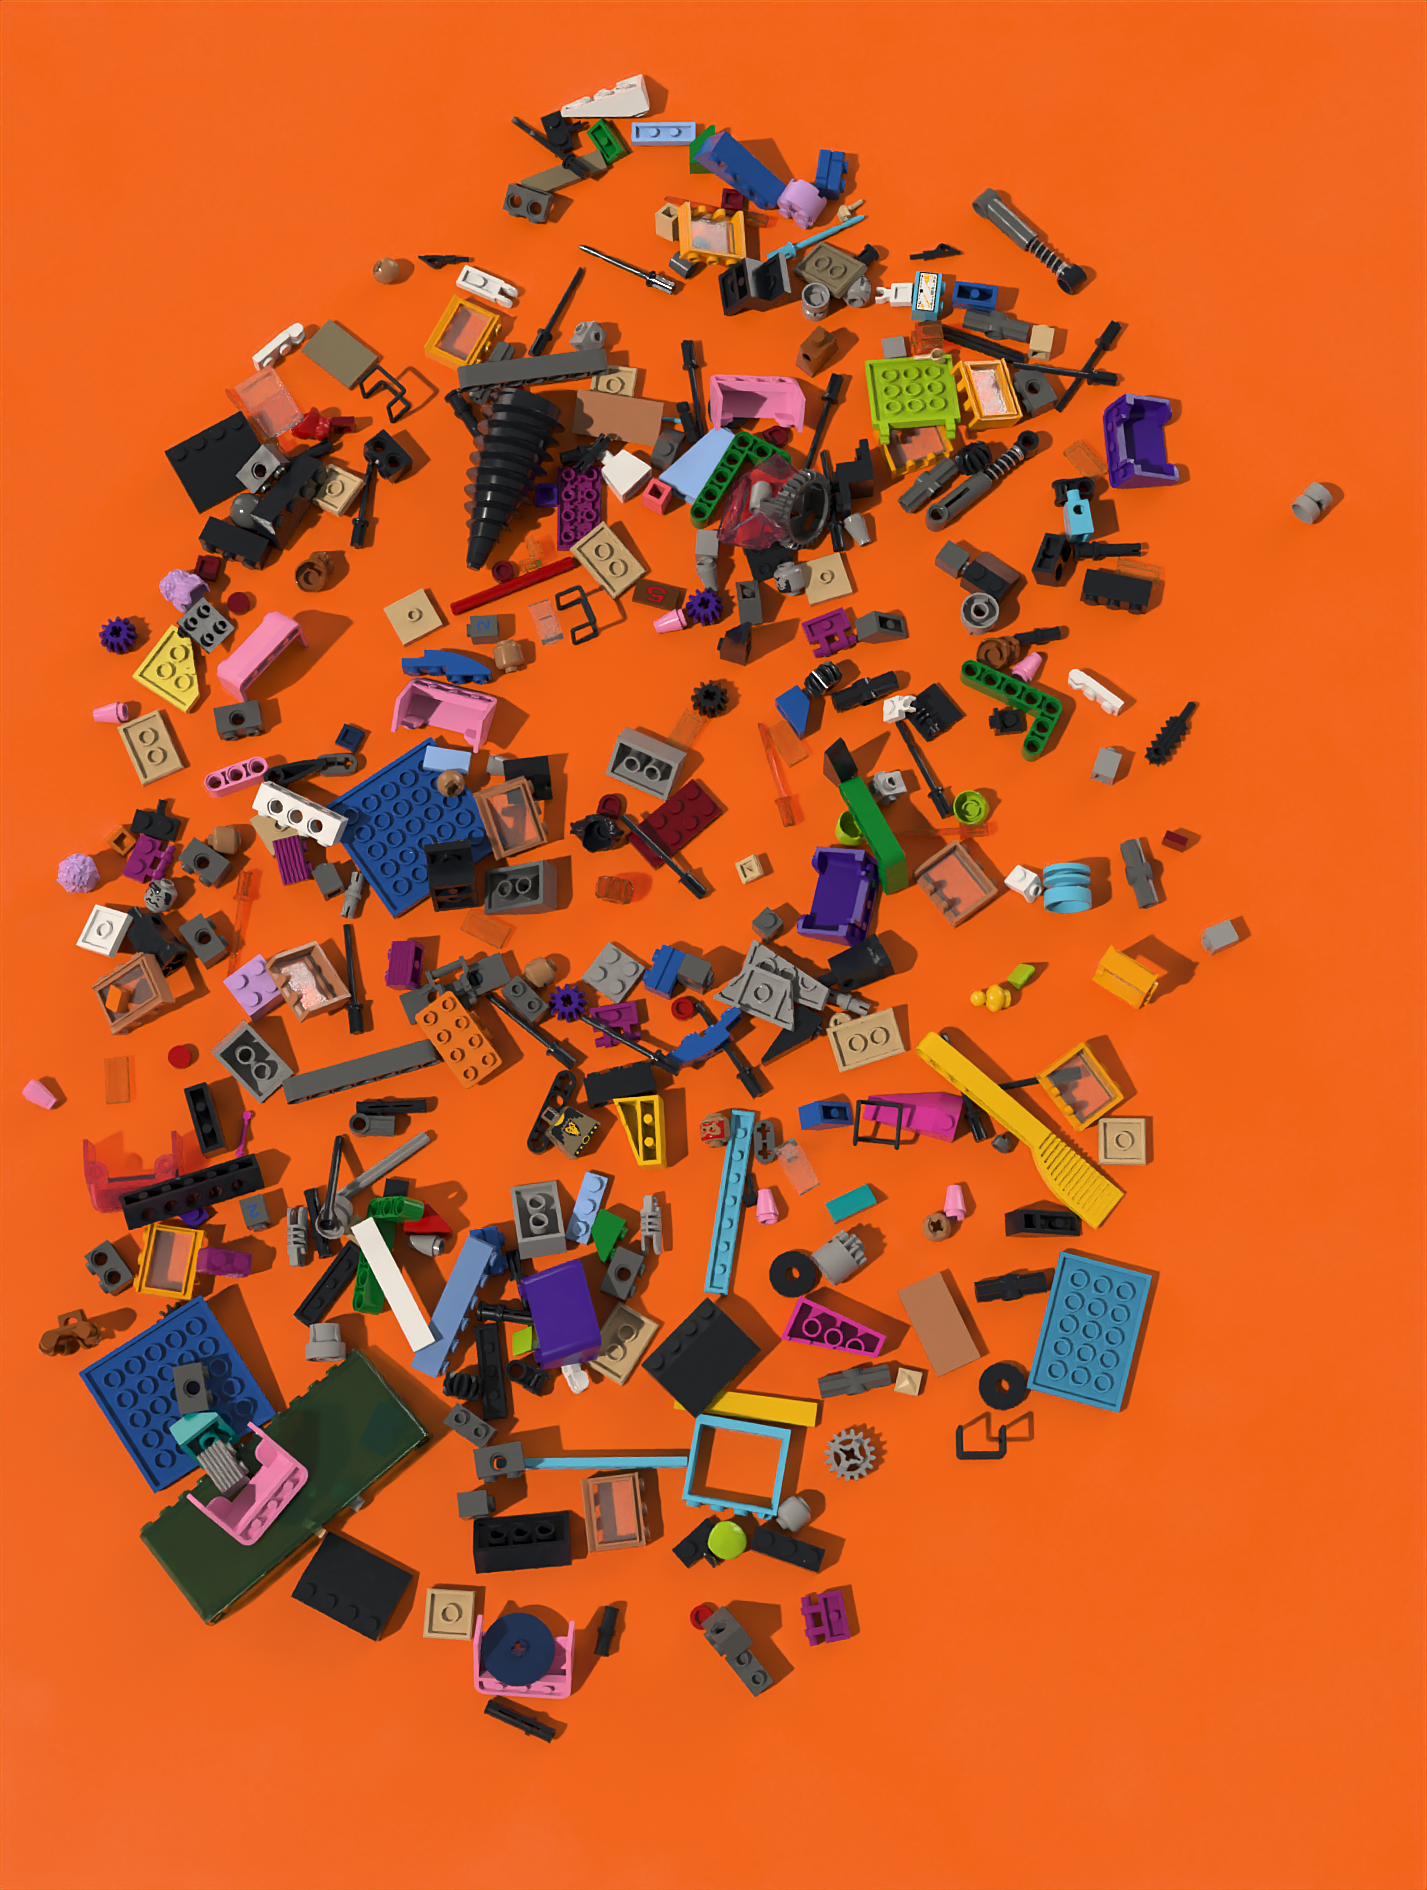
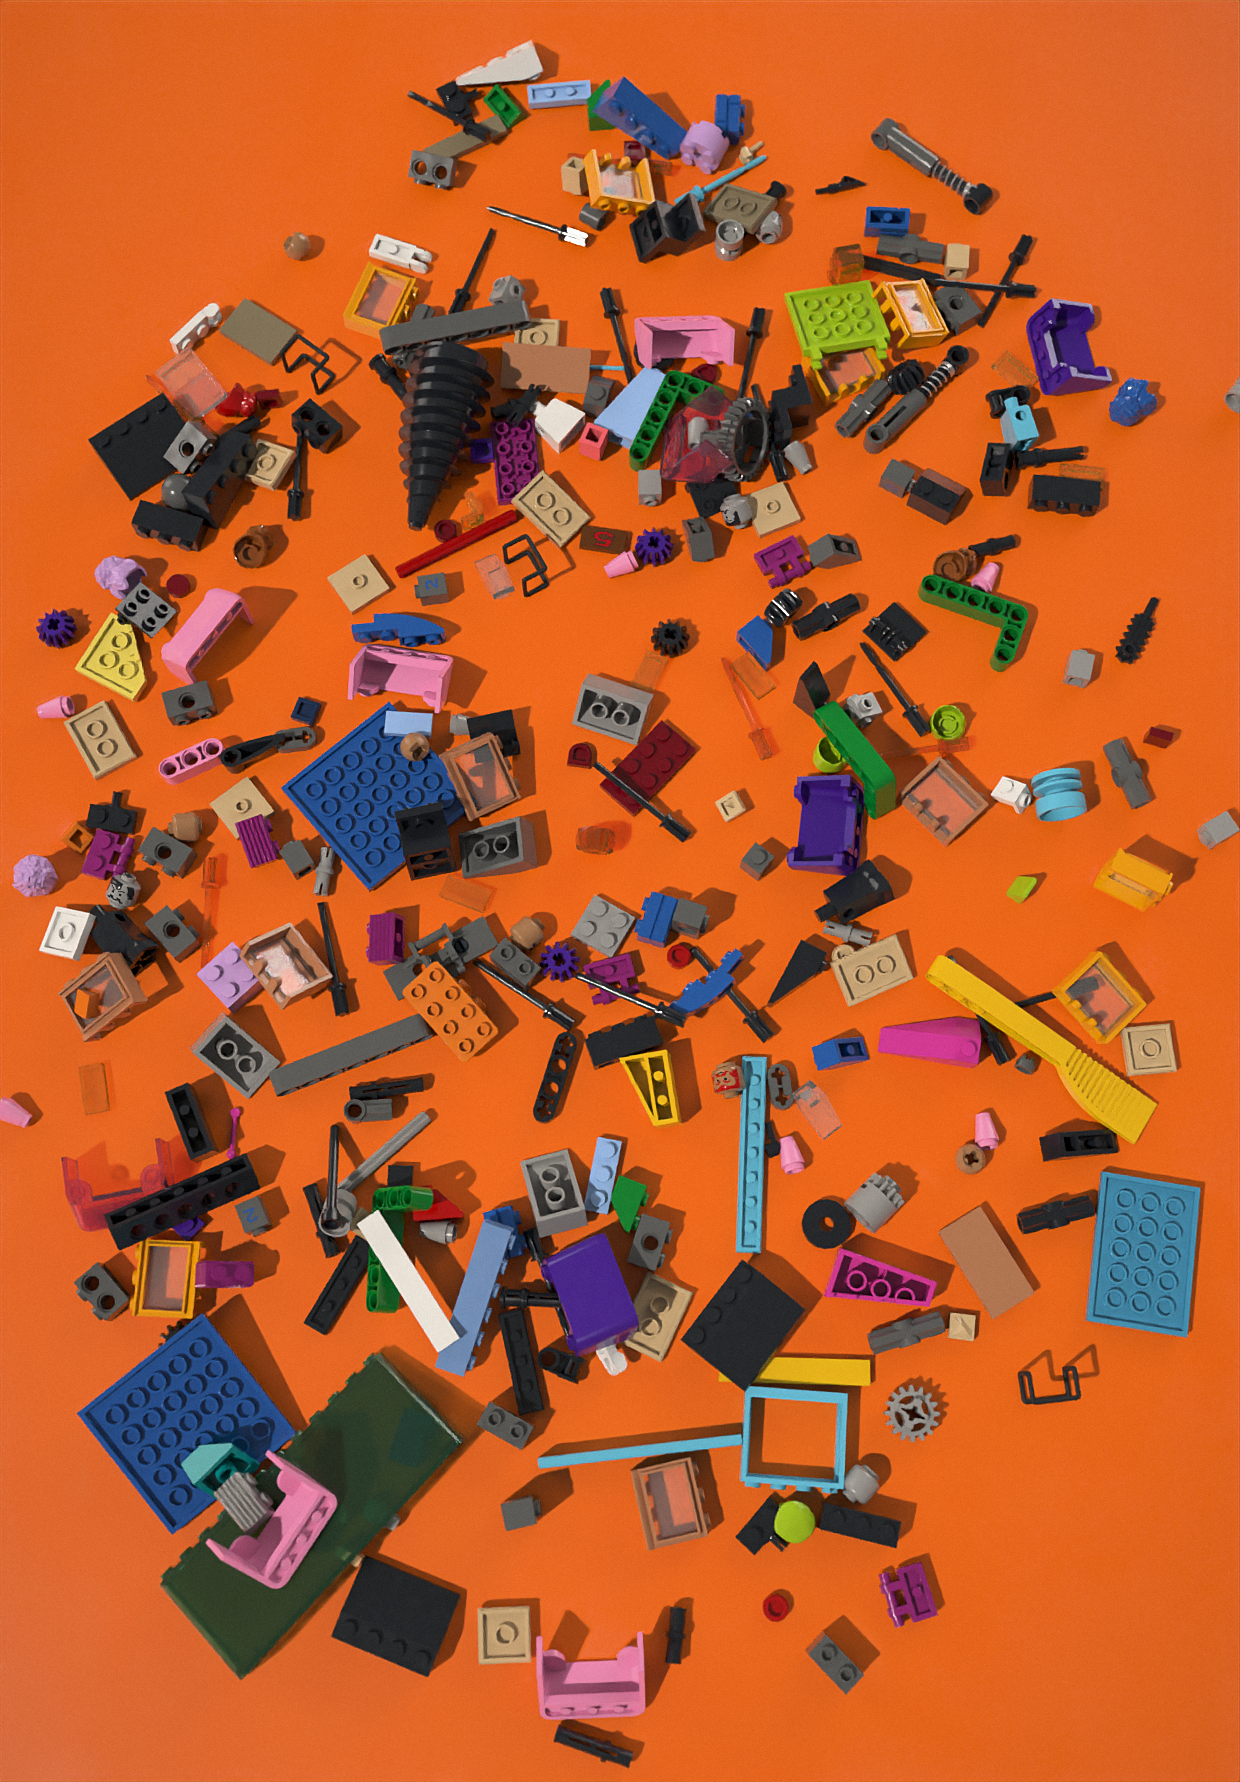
camera: 10 degrees left, 0 degrees up
(59, 1339) = (80, 1366): dark orange piece -> none
(179, 1057) = (158, 1058): red tile -> none
(192, 1402) = (200, 1432): dark grey brick -> none
(207, 568) = (143, 553): dark red tile -> none
(297, 1236) = (300, 1236): light grey hinge -> none
(325, 1343) = (341, 1350): light grey piece -> none
(332, 822) = (296, 799): white brick -> none
(440, 259) = (351, 232): black hand -> none
(462, 1386) = (493, 1382): black gear -> none
(486, 1456) = (526, 1463): dark grey brick -> none
(508, 655) = (460, 613): medium nougat head -> none
(522, 1542) = (574, 1546): black slope -> none
(524, 1341) = (553, 1325): lime slope -> none
(533, 1661) = (603, 1679): dark blue piece -> none
(569, 1130) = (576, 1095): torso -> none
(597, 832) = (570, 783): black hair -> none
(651, 1225) = (672, 1187): light grey hinge -> none
(687, 422) = (615, 367): black axle -> none
(707, 573) = (653, 512): light grey cone -> none
(726, 1634) = (807, 1626): dark grey brick -> none
(736, 644) = (691, 579): slope -> none
(761, 995) = (760, 935): light grey wing -> none
(805, 988) = (775, 914): light grey wing -> none
(819, 348) = (739, 281): dark orange torso -> none
(851, 1204) = (877, 1143): teal slope -> none
(893, 347) = (811, 278): light grey tile -> none
(895, 708) = (859, 630): white plate -> none
(896, 1142) = (876, 1074): black piece -> none
(899, 295) = (810, 228): white plate -> none
(926, 296) = (838, 225): brick -> none
(934, 355) = (855, 278): tan hand -> none
(982, 603) = (933, 518): light grey piece -> none
(995, 998) = (998, 914): yellow animal -> none
(998, 1400) = (1074, 1318): black tile -> none
(1005, 722) = (970, 634): black bracket -> none
(1095, 691) = (1057, 595): white hinge -> none
(1195, 504) = (1132, 402): none -> blue hair

